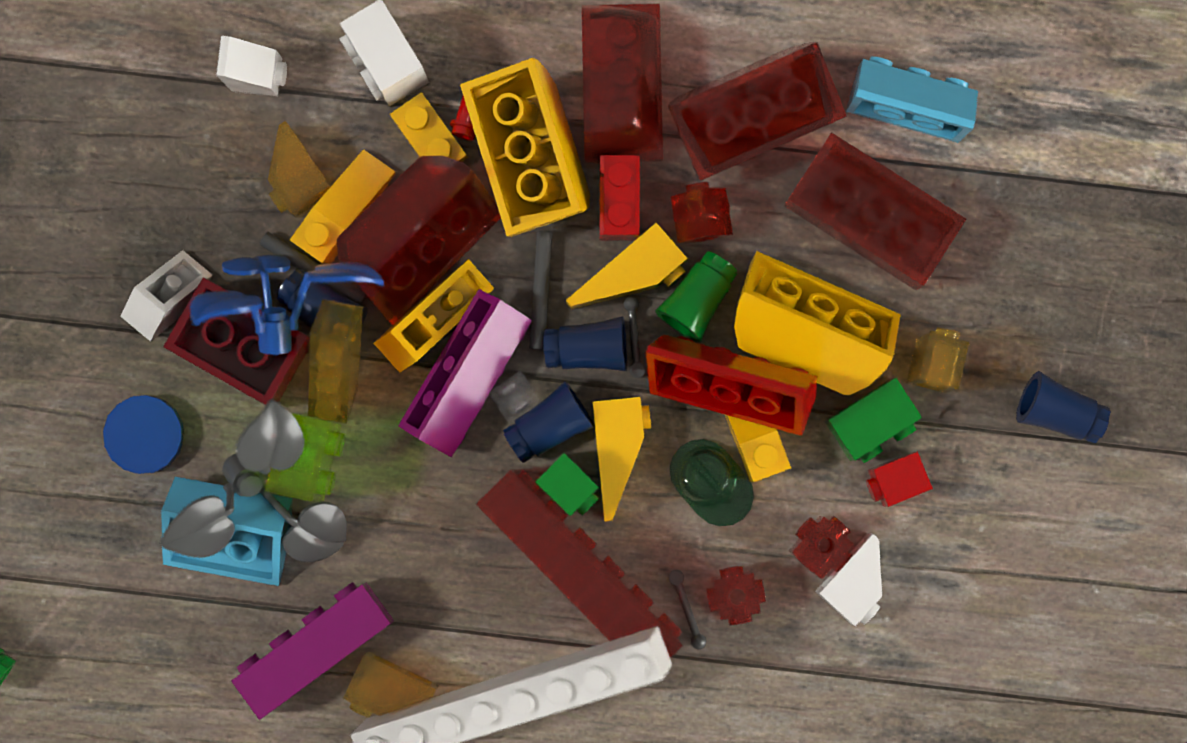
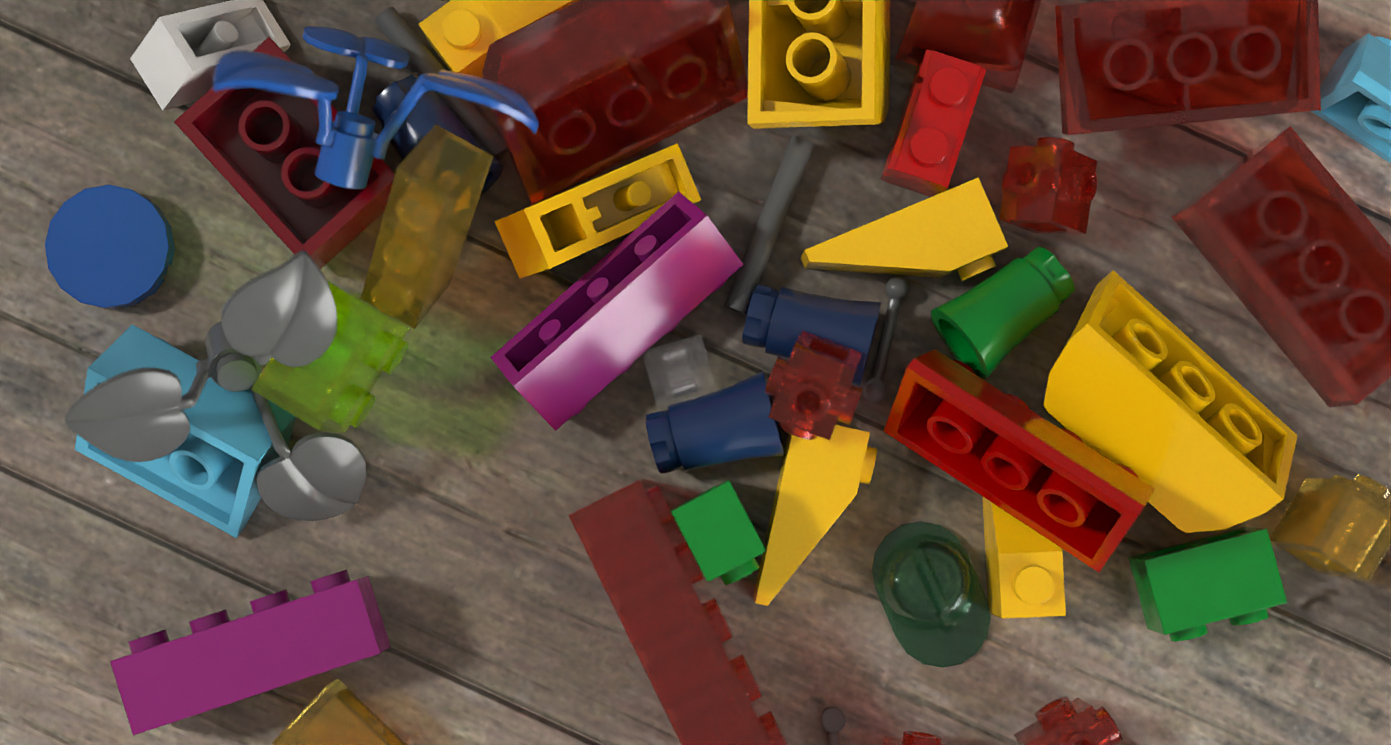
camera: 10 degrees right, 0 degrees up
(597, 381) = (814, 387): none -> clear red brick
(898, 480) = (1217, 683): red brick -> none

